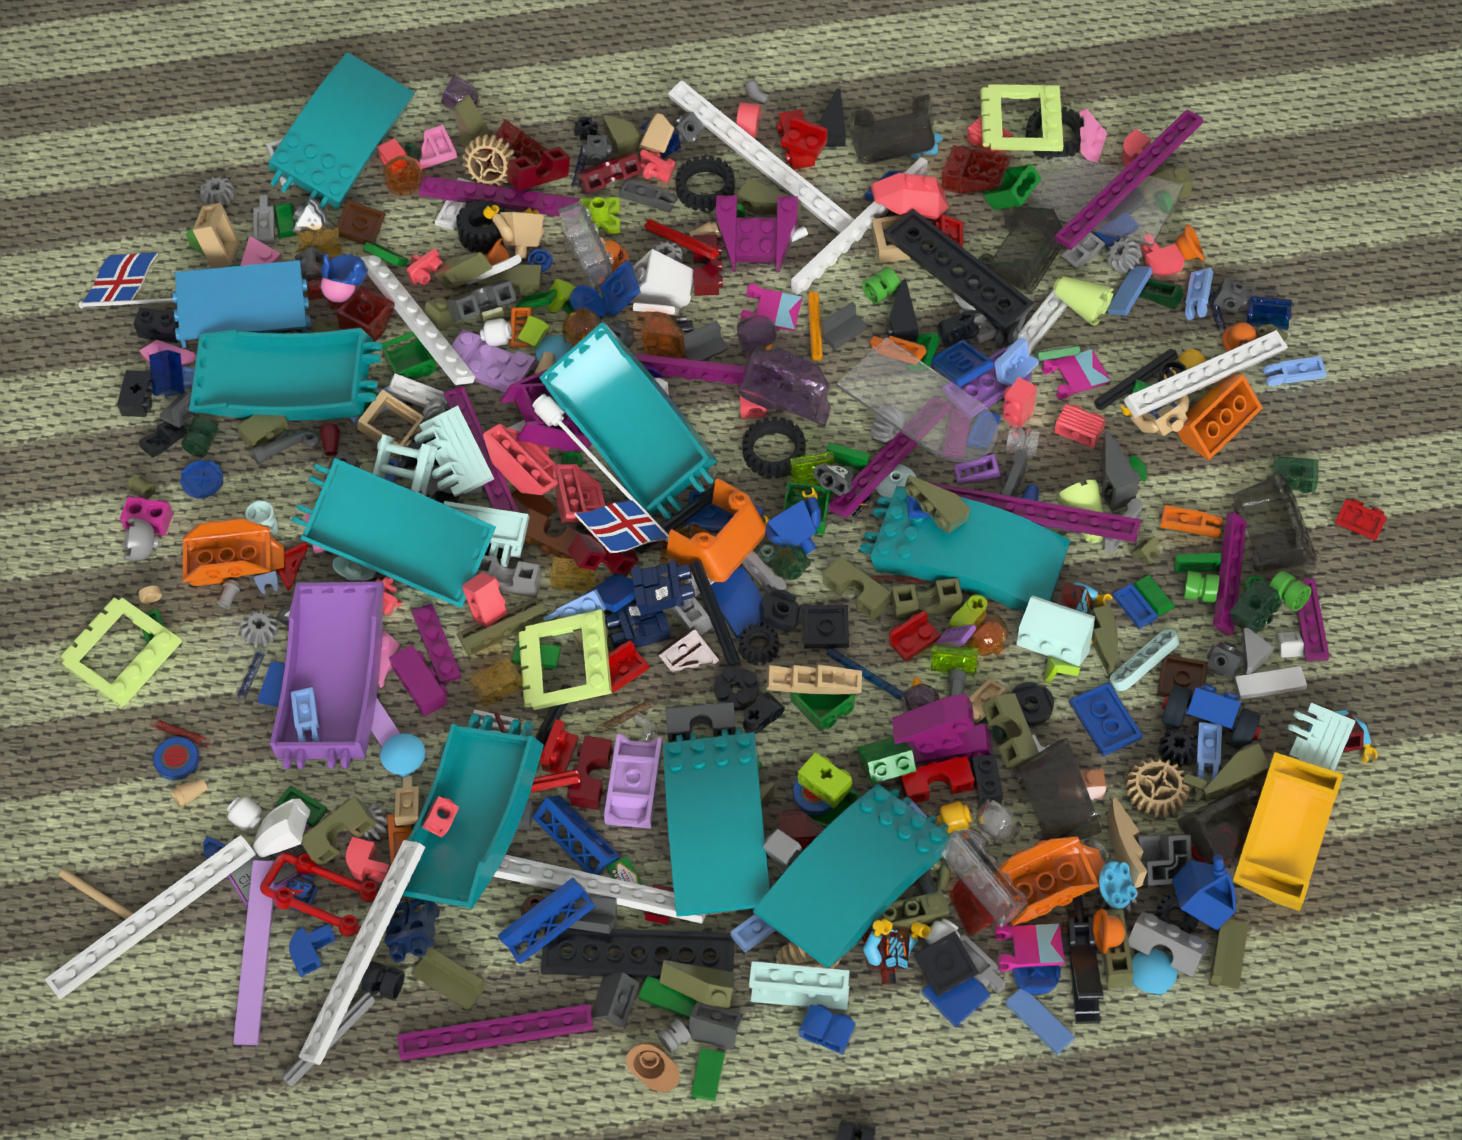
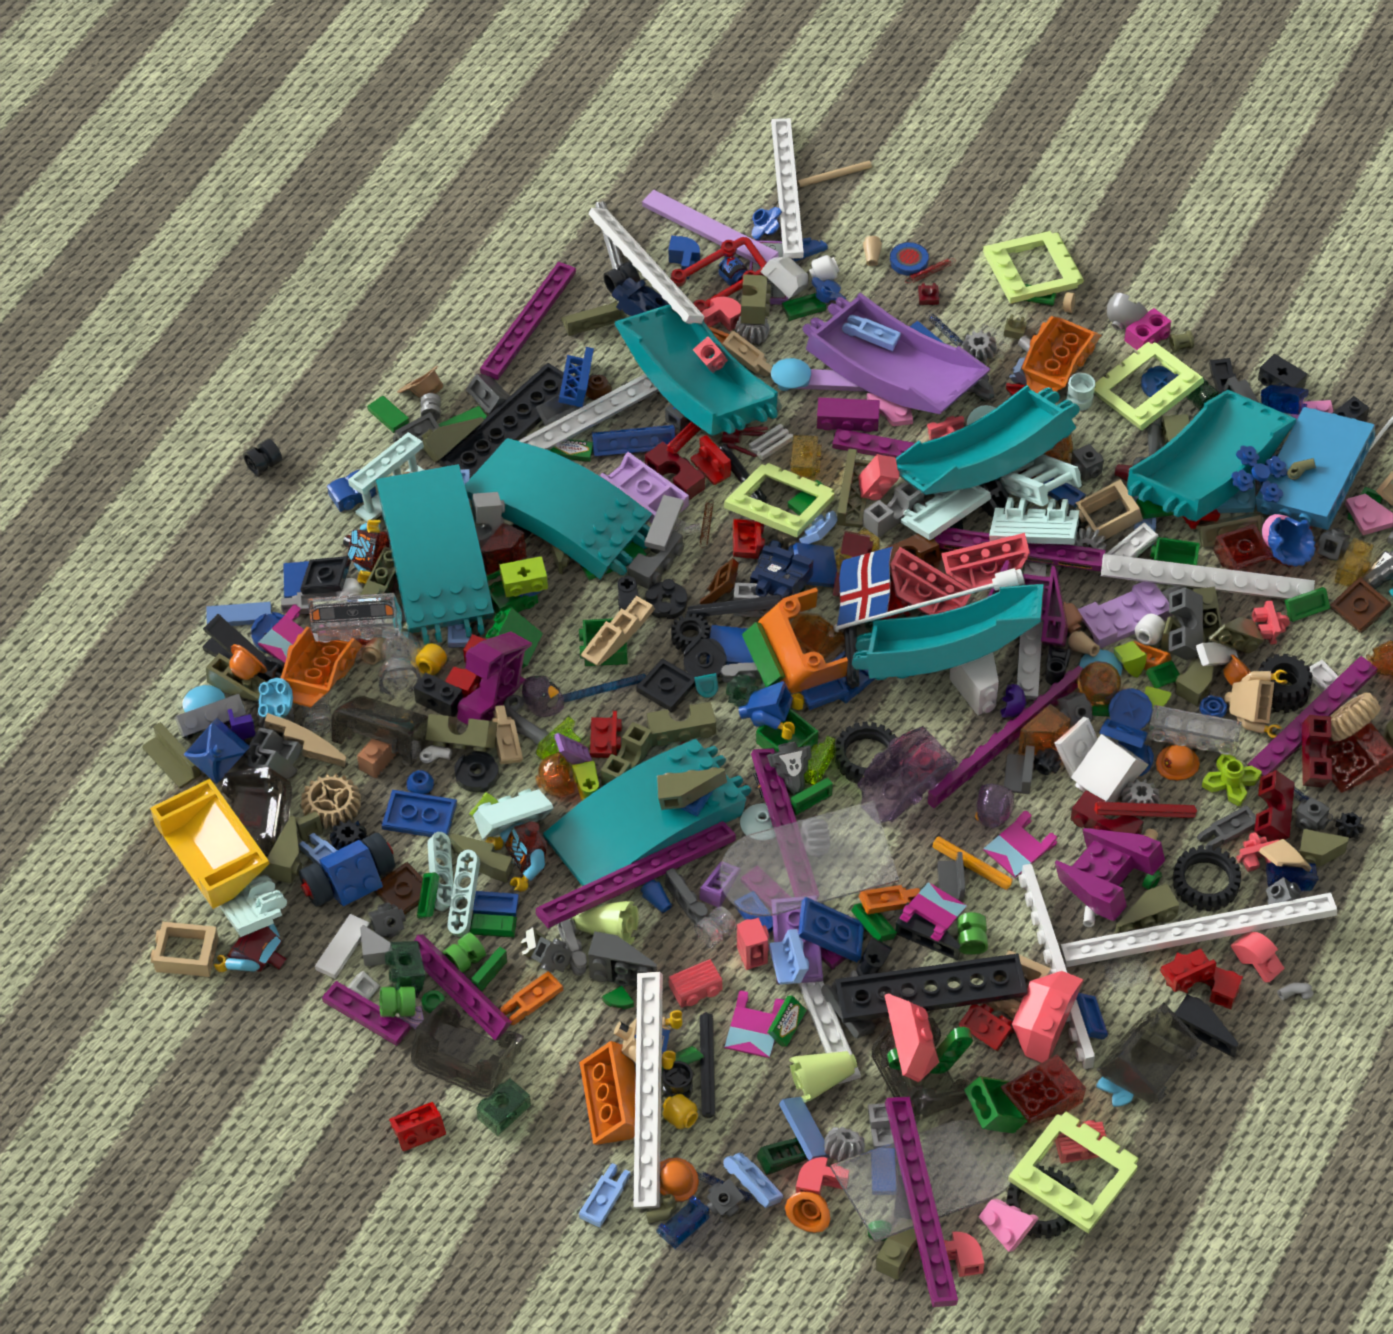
camera: 125 degrees right, 5 degrees down
(212, 618) = (1014, 328): none -> olive tile
(214, 713) = (928, 294): none -> dark red tile
(215, 901) = (765, 222): none -> plate
(226, 445) = (1162, 400): none -> yellowish green hinge
(258, 303) = (1300, 467): none -> olive arm
(271, 792) = (826, 290): none -> blue plate
(286, 320) = (1259, 472): none -> blue plant
(666, 727) = (664, 522): none -> light grey tile
(751, 556) = (763, 655): none -> green tile
(802, 594) = (707, 685): none -> teal tile
(886, 312) = (936, 908): none -> dark pink flag
(1004, 236) = (948, 1051): none -> green beam
(1016, 241) = (912, 1037): none -> coral wedge
(1084, 741) = (422, 776): none -> blue plate
(1152, 521) = (552, 954): none -> dark grey brick
(1153, 625) = (463, 893): none -> light aqua beam
(1160, 899) = (242, 726): none -> dark purple panel
(1178, 646) = (428, 895): none -> green tile
(1359, 775) = (181, 965): none -> tan window

